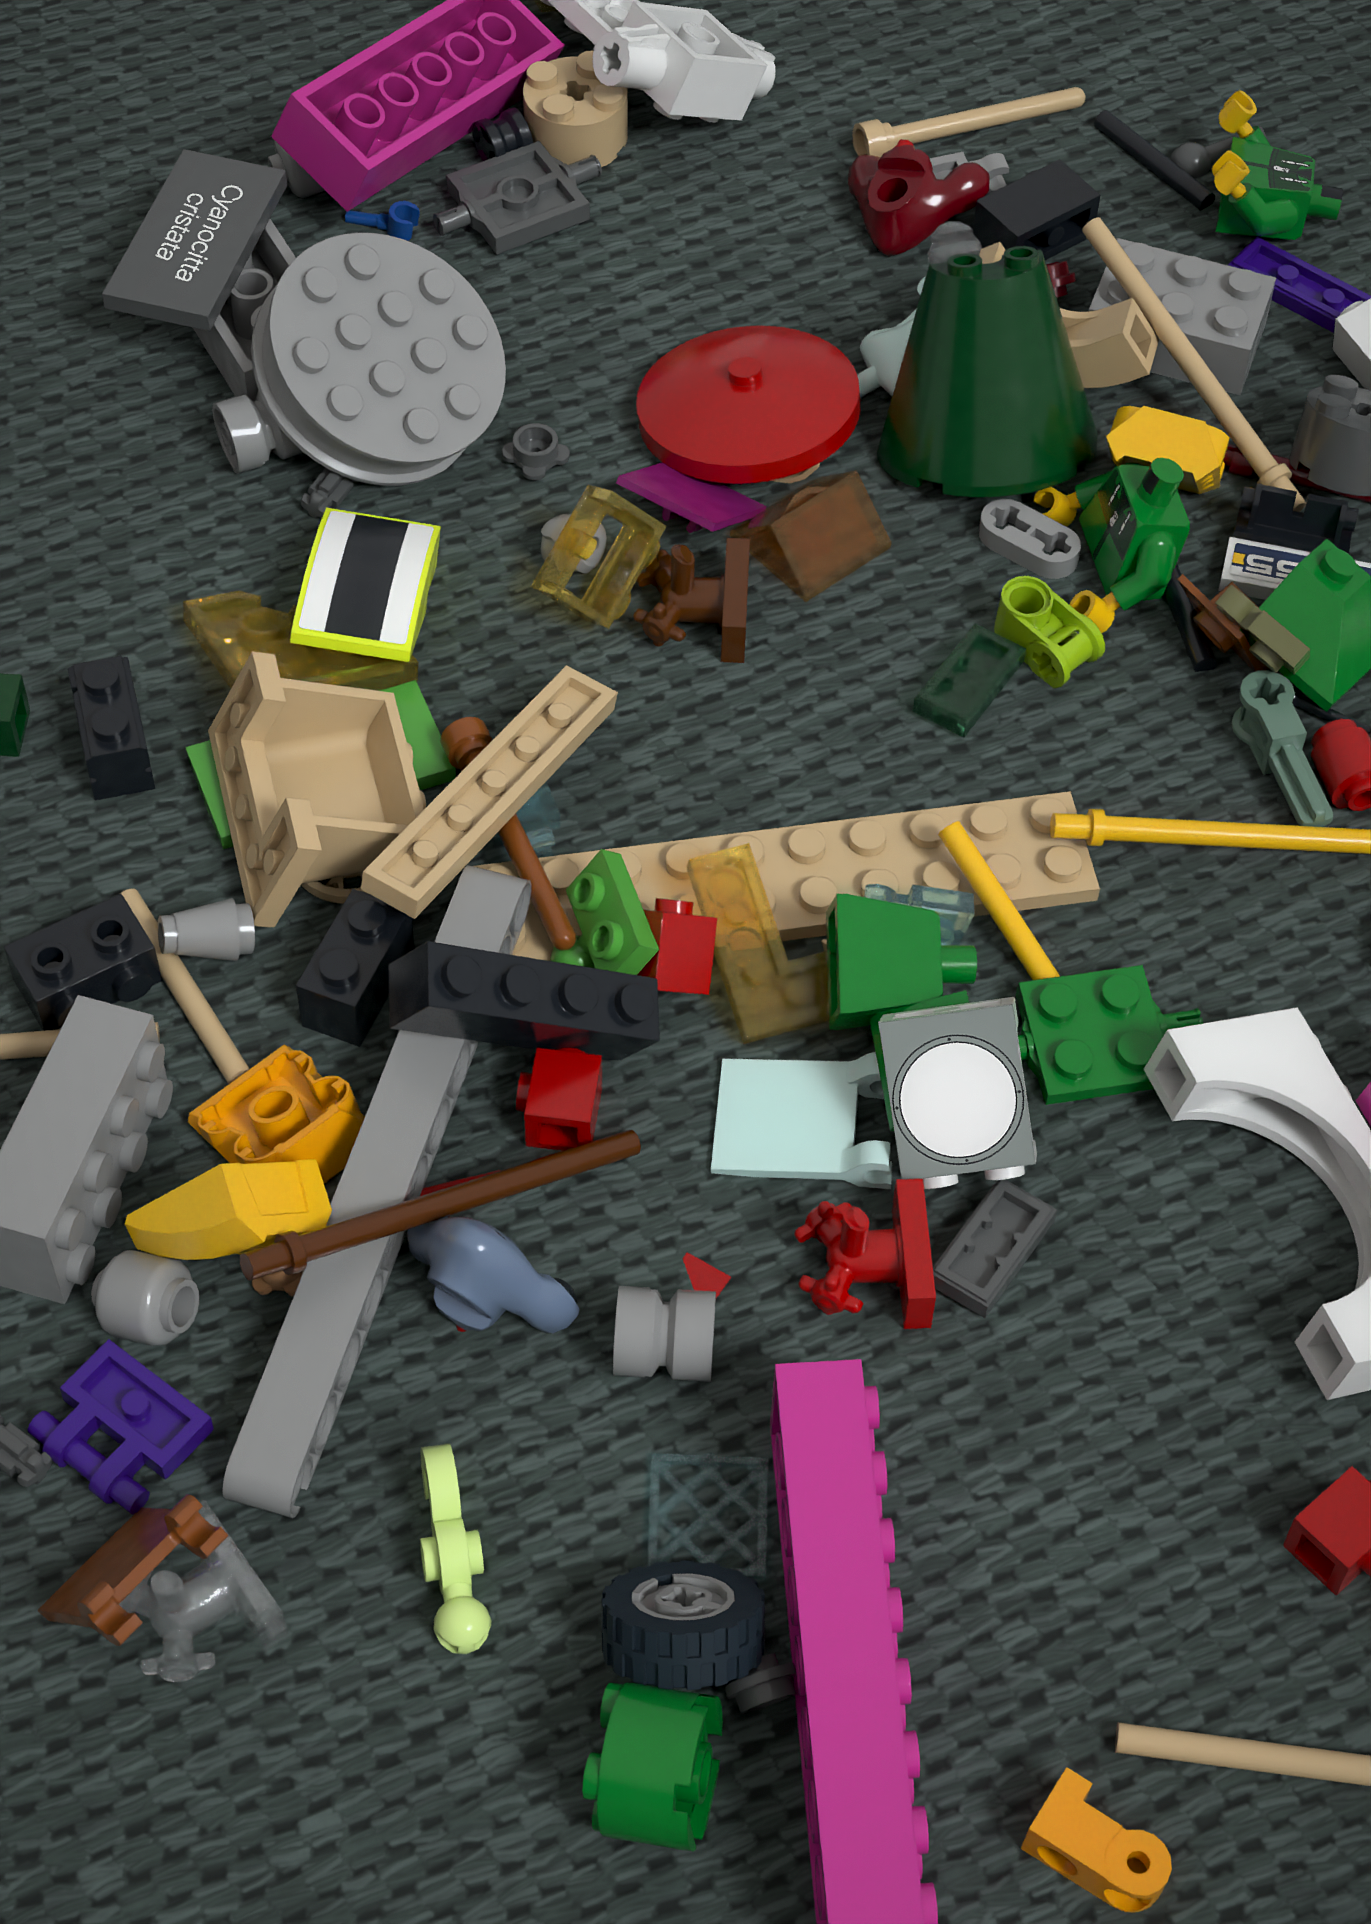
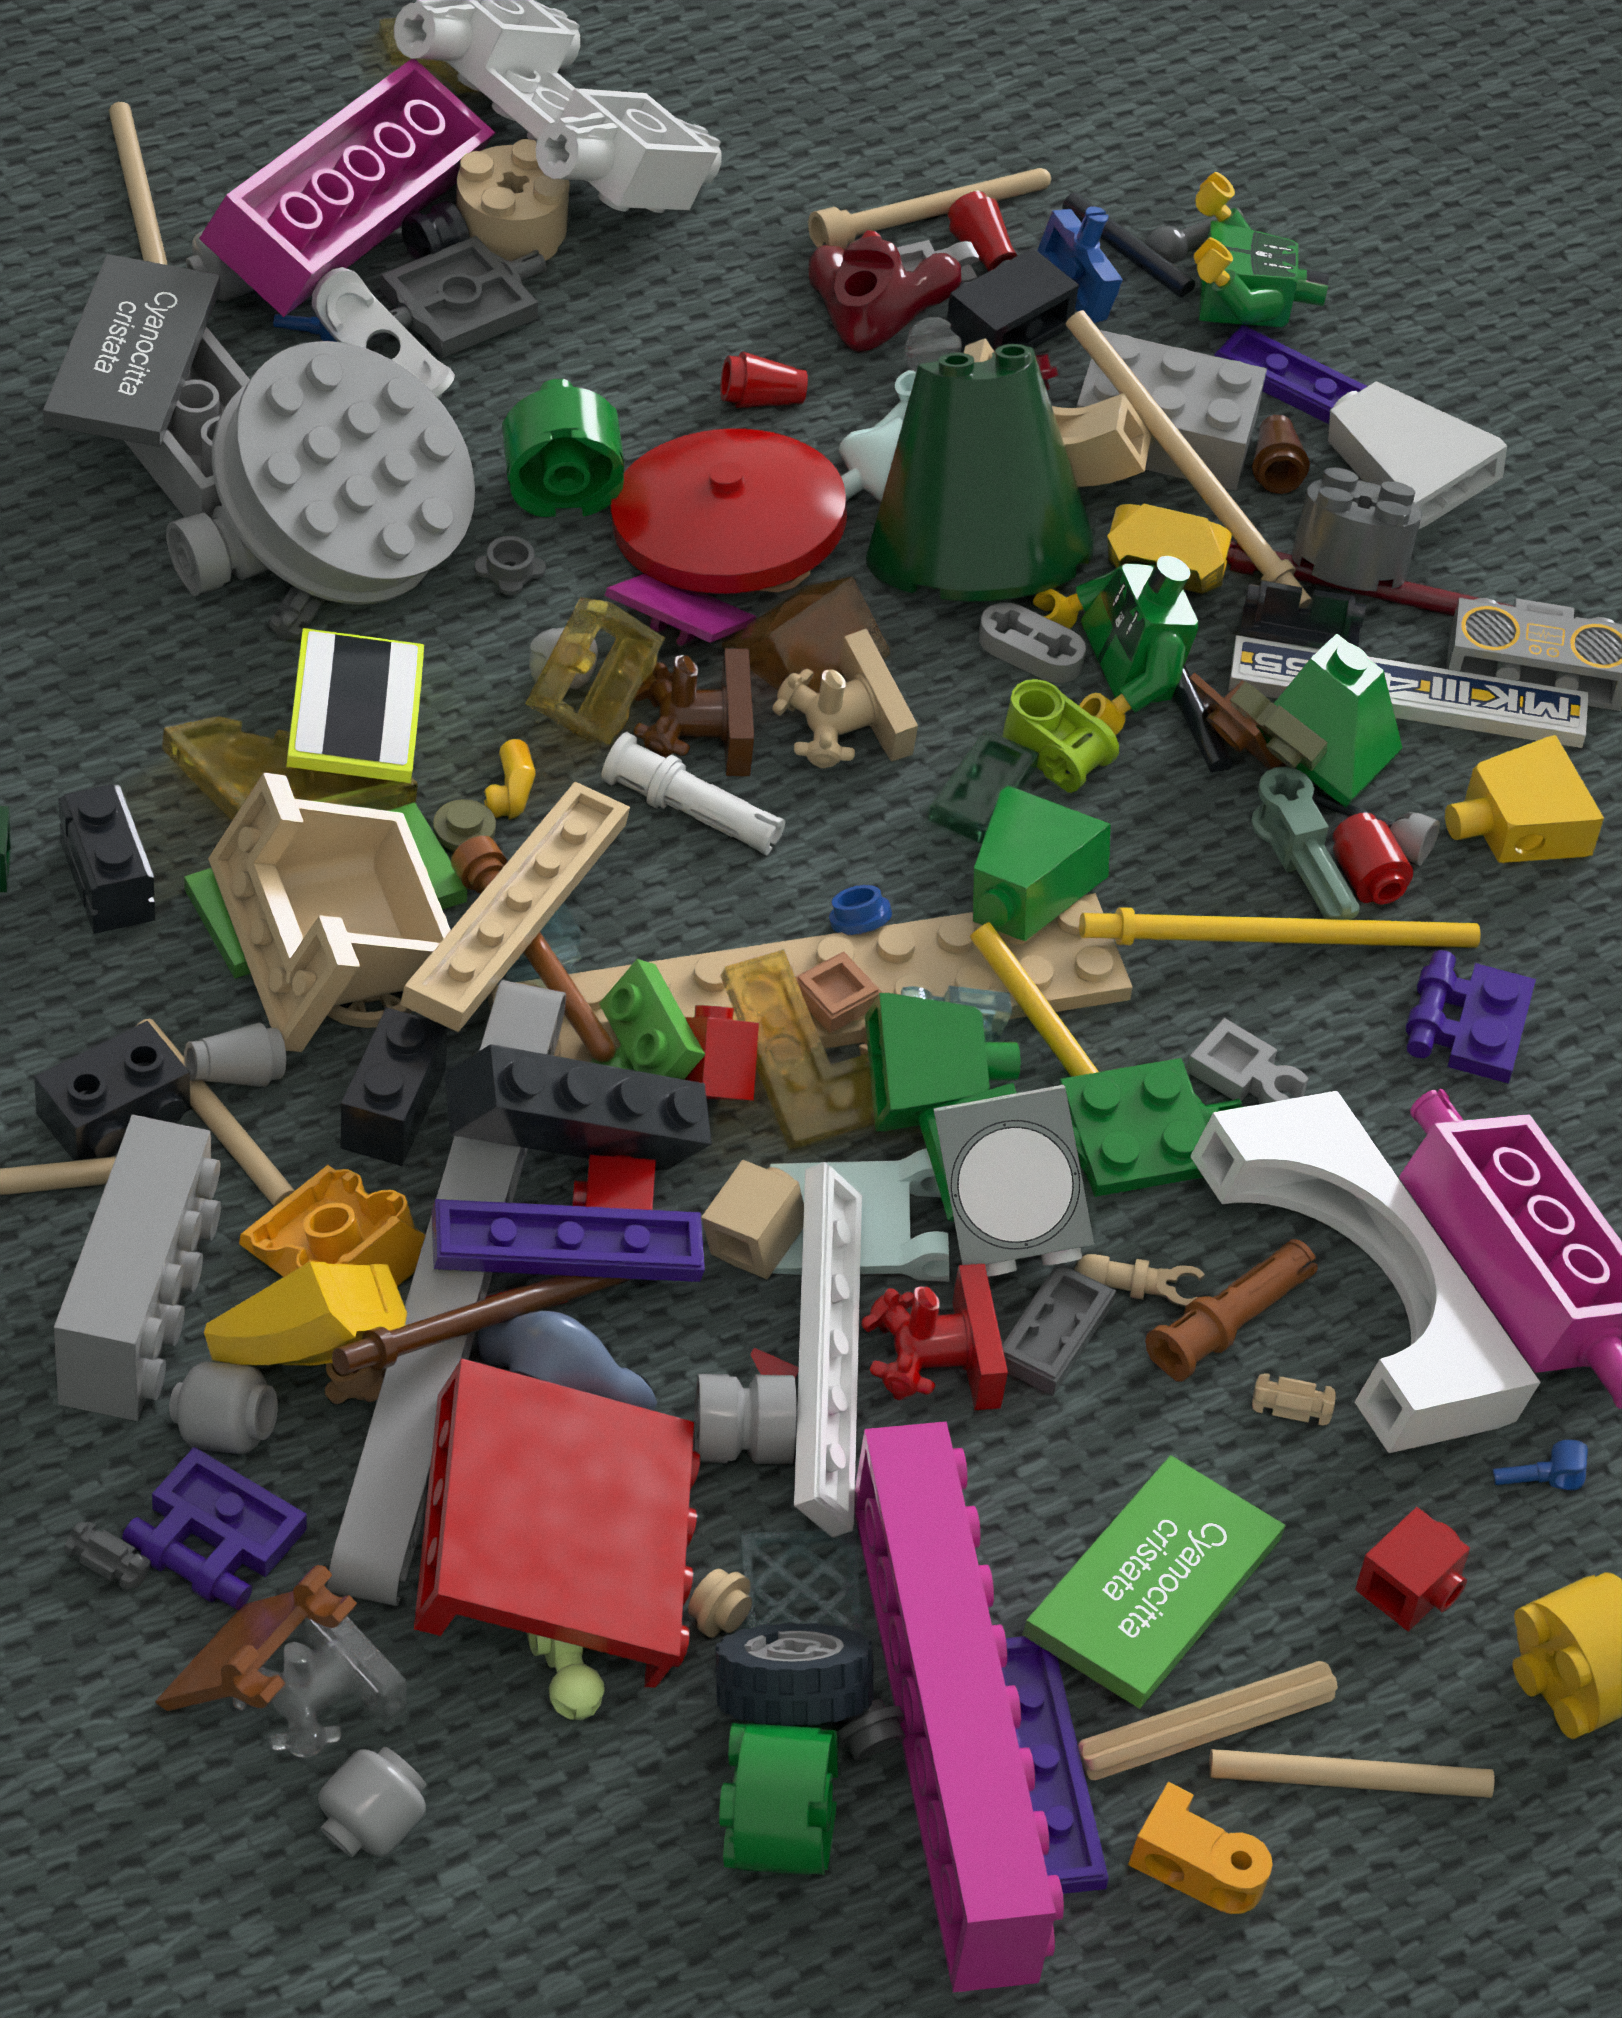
camera: 10 degrees left, 5 degrees down
(235, 1741) = (372, 1802): none -> light grey head
(237, 89) = (137, 183): none -> tan bar
(416, 212) = (355, 315): none -> white piece
(459, 700) = (462, 820): none -> olive plate
(459, 1441) = (558, 1517): none -> panel
(501, 1139) = (567, 1240): none -> dark purple tile
(519, 655) = (519, 777): none -> yellow arm
(593, 342) = (563, 450): none -> green brick
(620, 1533) = (720, 1602): none -> tan plate
(662, 669) = (668, 783): none -> white pin
(698, 1118) = (755, 1218): none -> tan brick
(755, 1267) = (828, 1351): none -> white tile
(792, 282) = (761, 382): none -> red cone
(801, 885) = (837, 991): none -> nougat tile
(835, 801) = (859, 910): none -> blue plate
(836, 599) = (840, 707): none -> tan piece
(947, 1733) = (1059, 1774): none -> dark purple tile
(1011, 761) = (1036, 863): none -> green slope
(1013, 135) = (979, 221): none -> red cone
(1071, 1531) = (1154, 1581): none -> bright green tile
(1078, 1194) = (1137, 1277): none -> tan piece
(1102, 165) = (1076, 252): none -> blue plate
(1115, 1689) = (1207, 1720): none -> tan axle
(1155, 1246) = (1213, 1322): none -> dark orange pin
(1205, 972) = (1243, 1064): none -> light grey plate
(1232, 1333) = (1293, 1399): none -> tan piece
(1284, 362) = (1279, 456): none -> reddish brown cone

